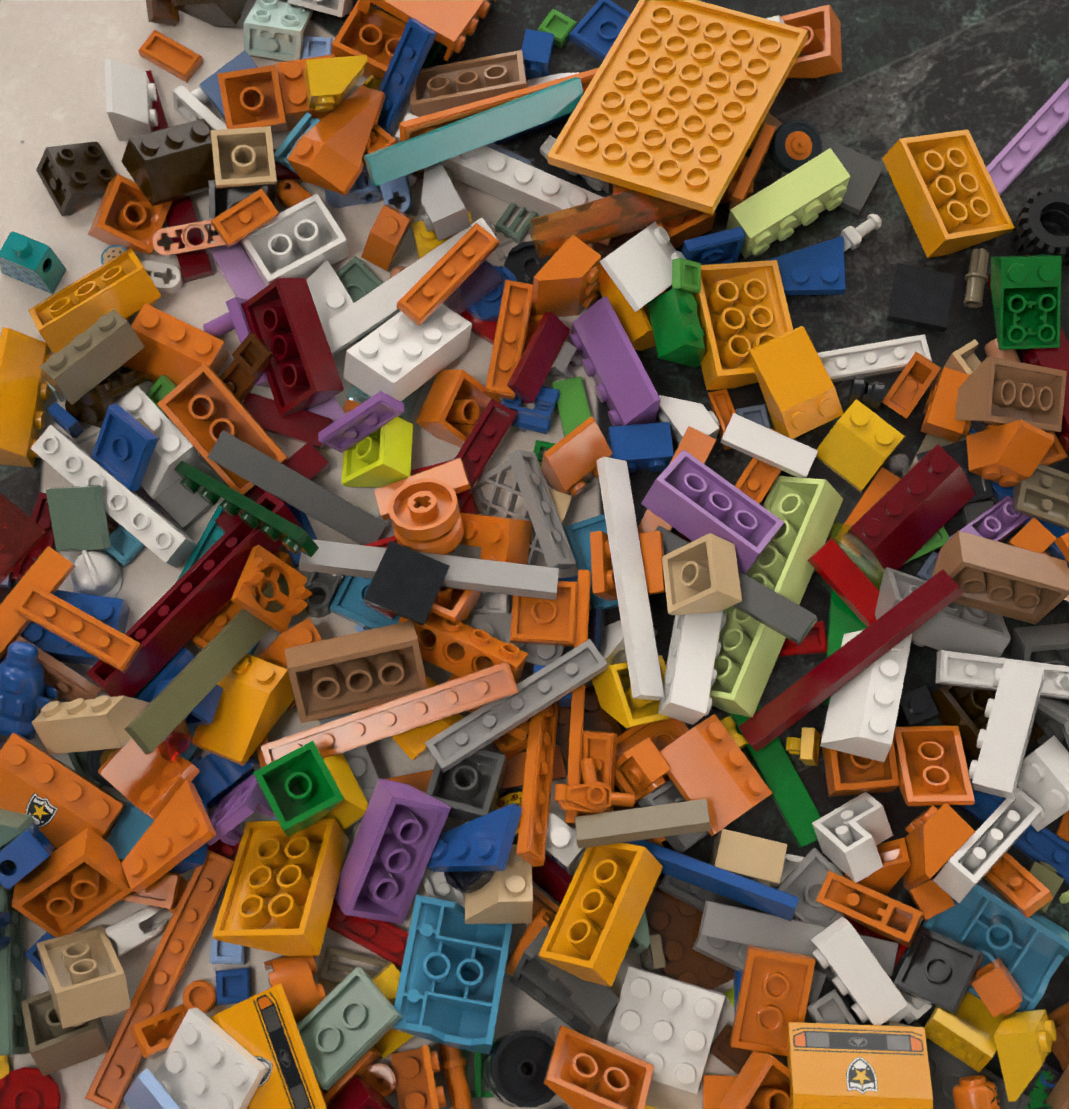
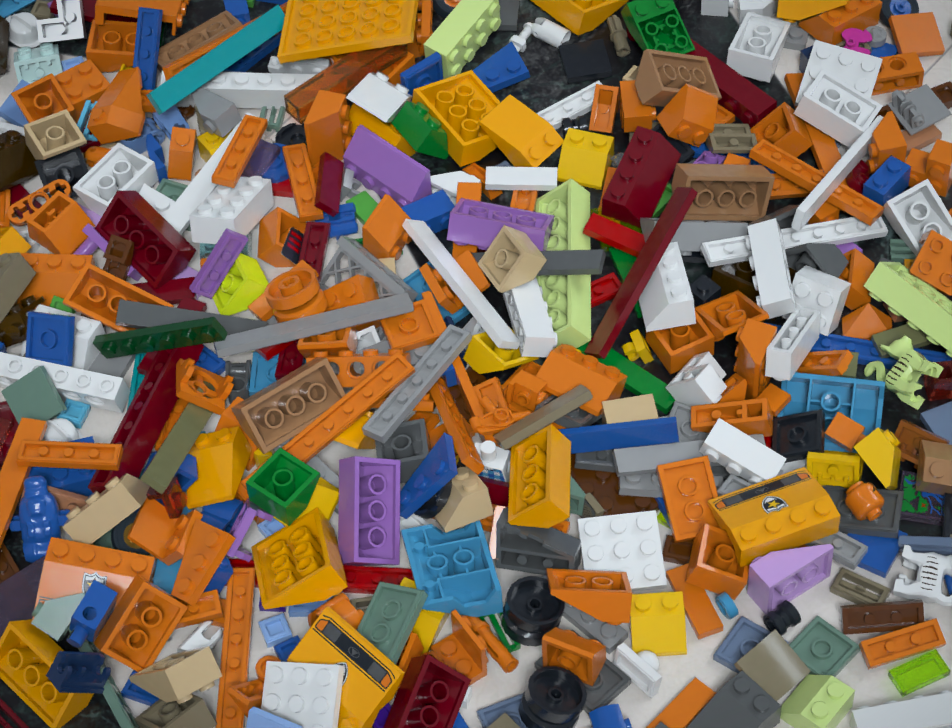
camera: 15 degrees left, 20 degrees down
(205, 282) = (59, 224): none -> orange slope
(244, 218) = (73, 172): orange plate -> none
(331, 79) = (97, 64): yellow slope -> none
(356, 224) = (156, 154): none -> blue slope
(406, 583) = (301, 333): black tile -> none
(461, 426) = (293, 245): none -> black sticker
(686, 275) = (411, 92): bright green tile -> none
(896, 238) = (550, 32): none -> white piece

